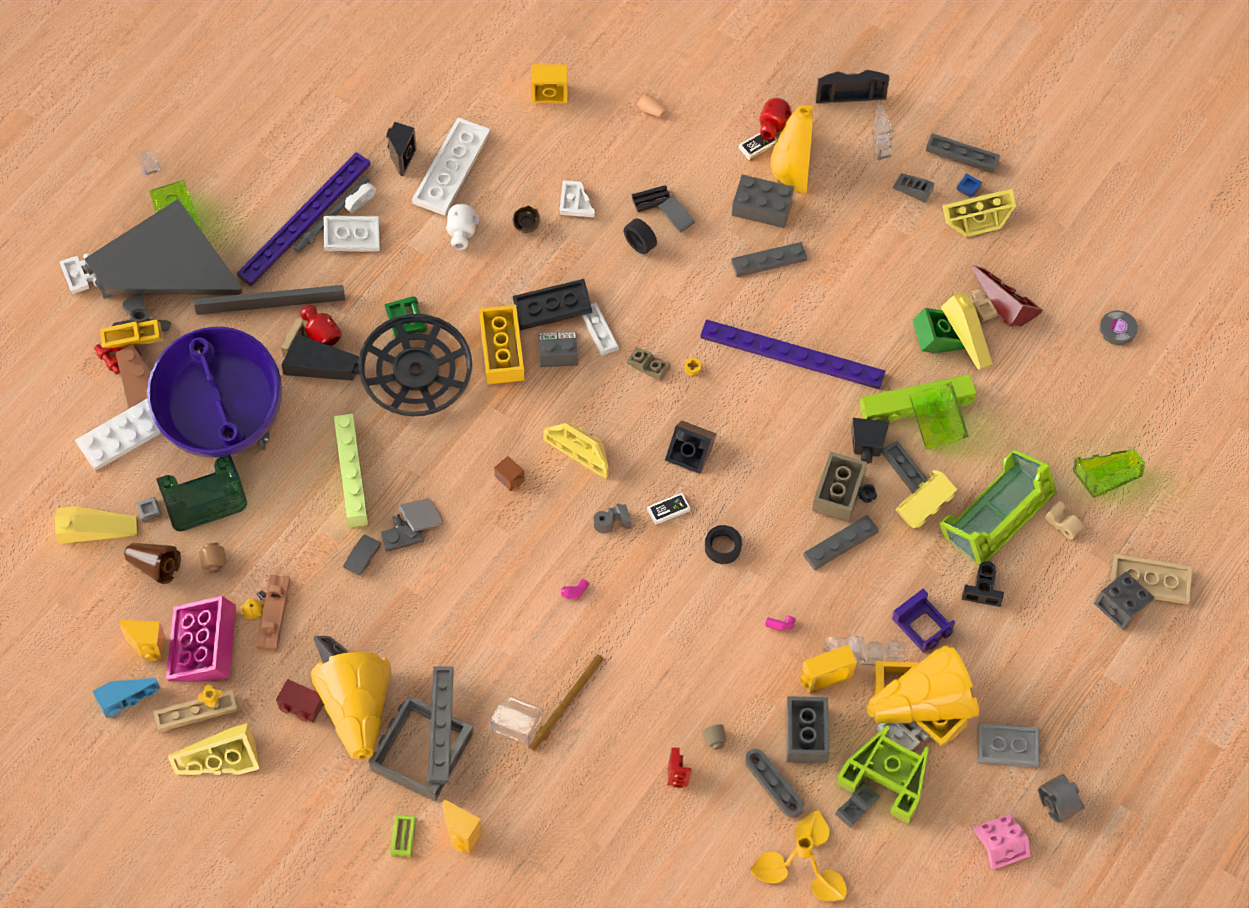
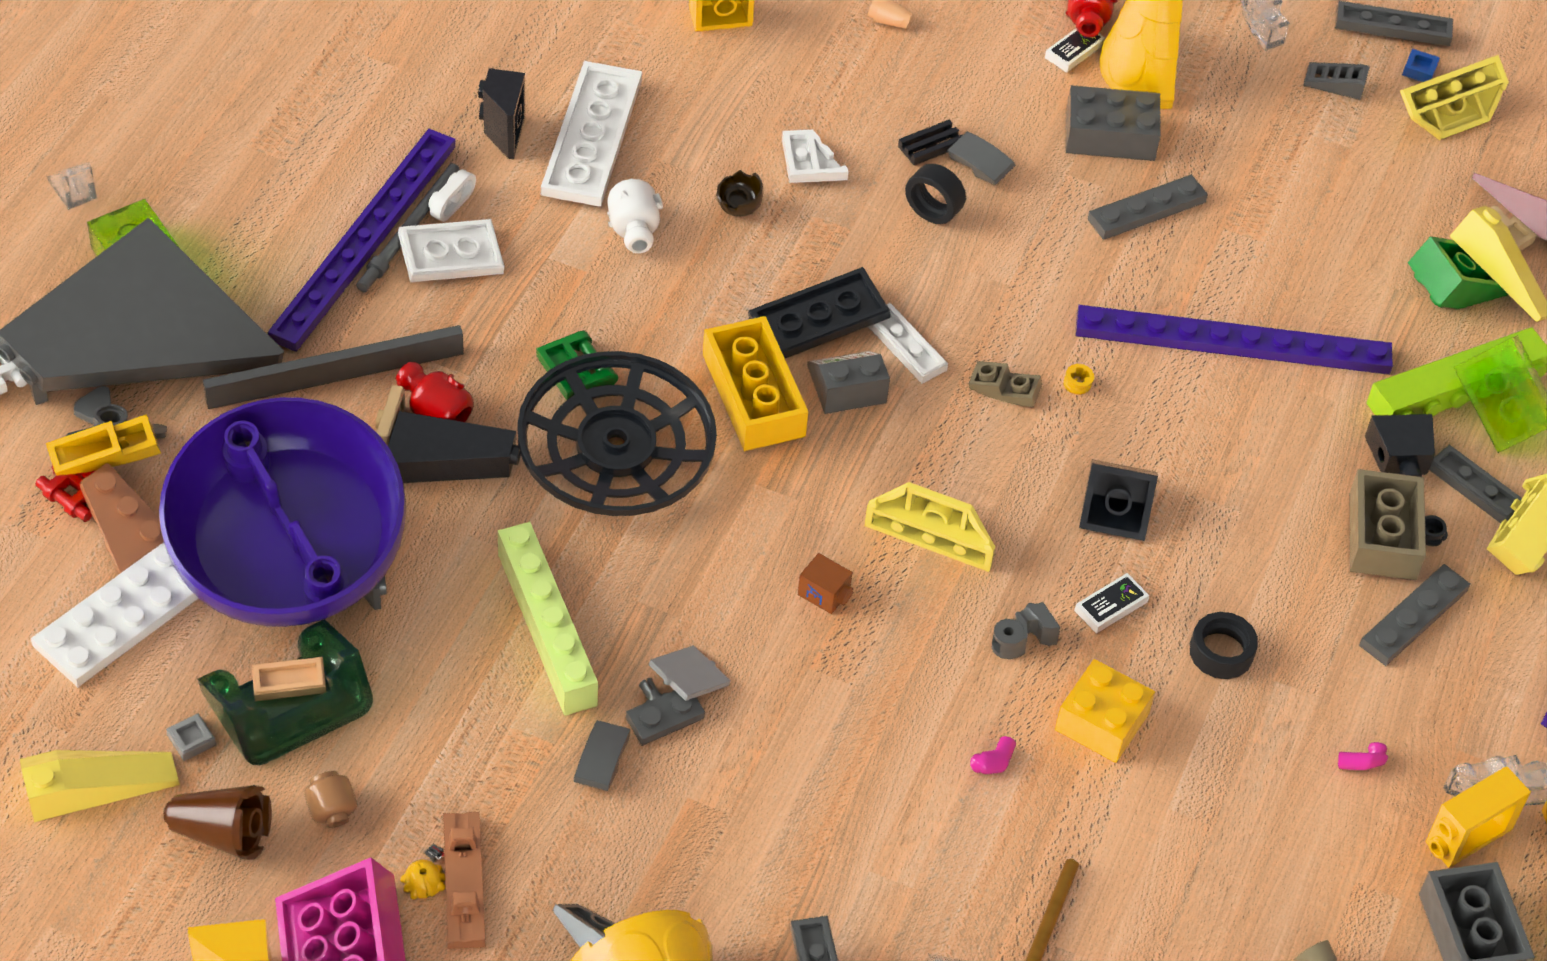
camera: 15 degrees left, 10 degrees down
(205, 484) = (288, 678): none -> light nougat tile
(642, 573) = (1104, 710): none -> yellow brick

